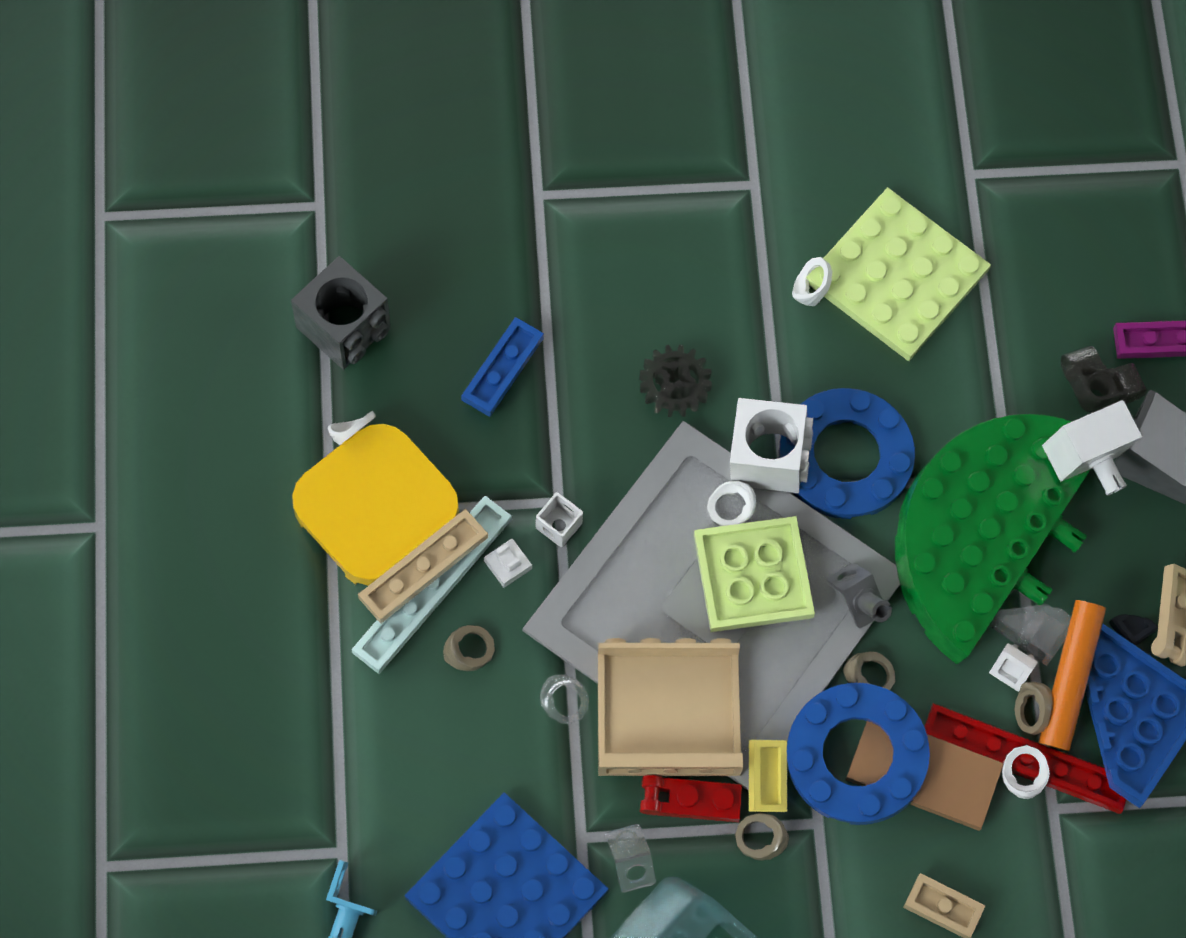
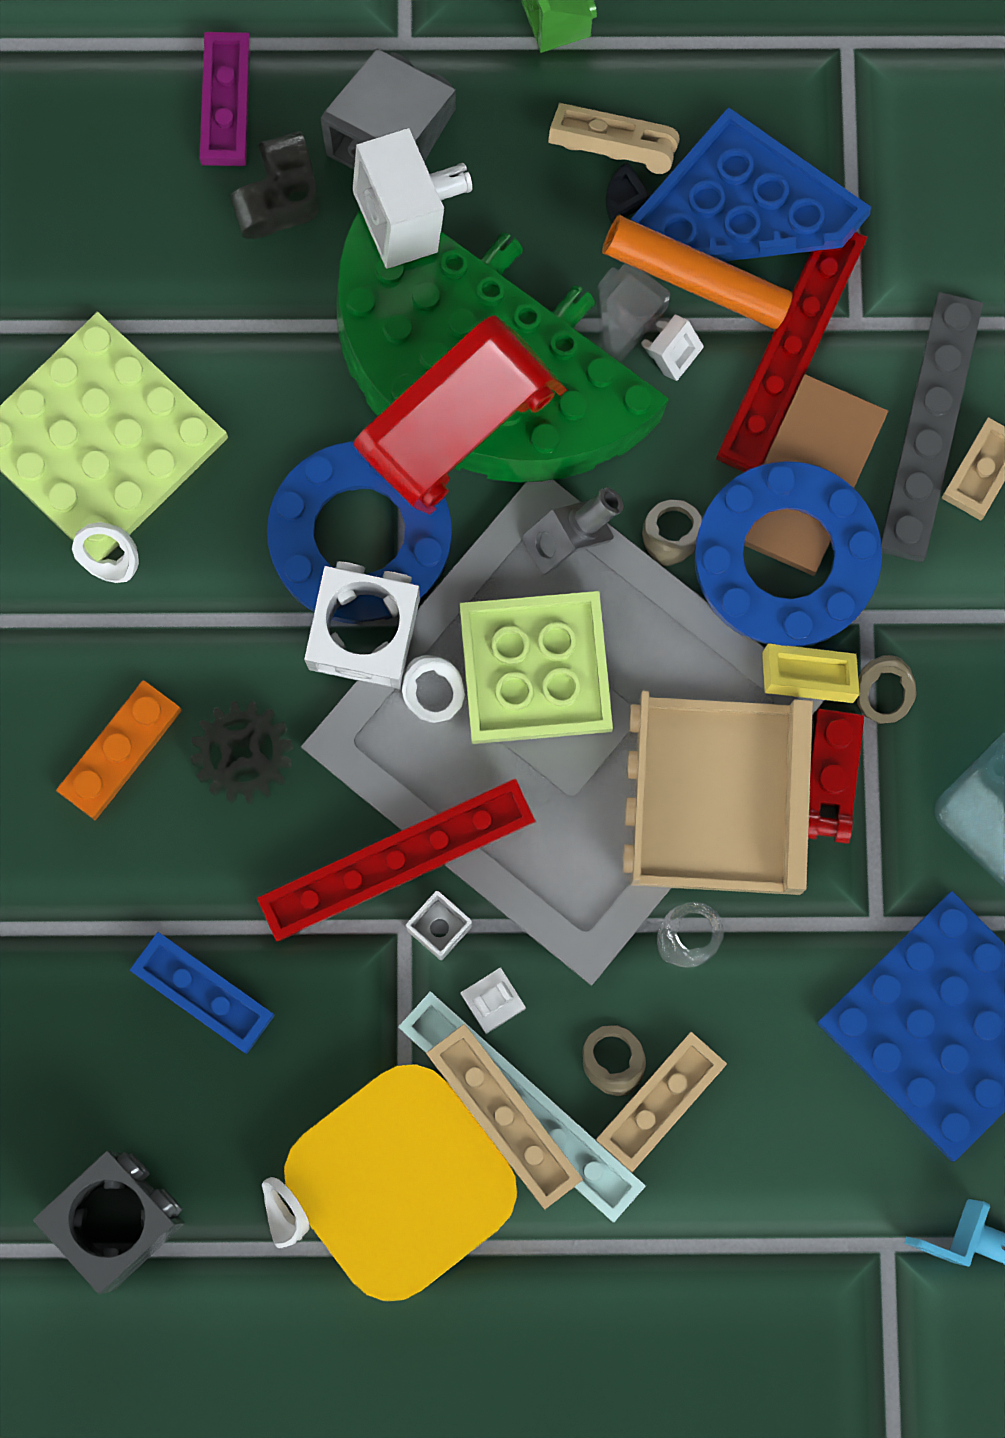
camera: 85 degrees left, 10 degrees up
(439, 681) = (661, 1102): none -> tan plate
(605, 488) = (396, 860): none -> red plate
(631, 850) = (905, 860): clear bracket -> none
(671, 303) = (119, 750): none -> orange plate
(938, 486) = (455, 411): none -> windscreen
(975, 866) = (930, 427): none -> dark grey plate
(1040, 781) = (839, 347): white piece -> none
(1045, 700) = (725, 312): dark tan piece -> none

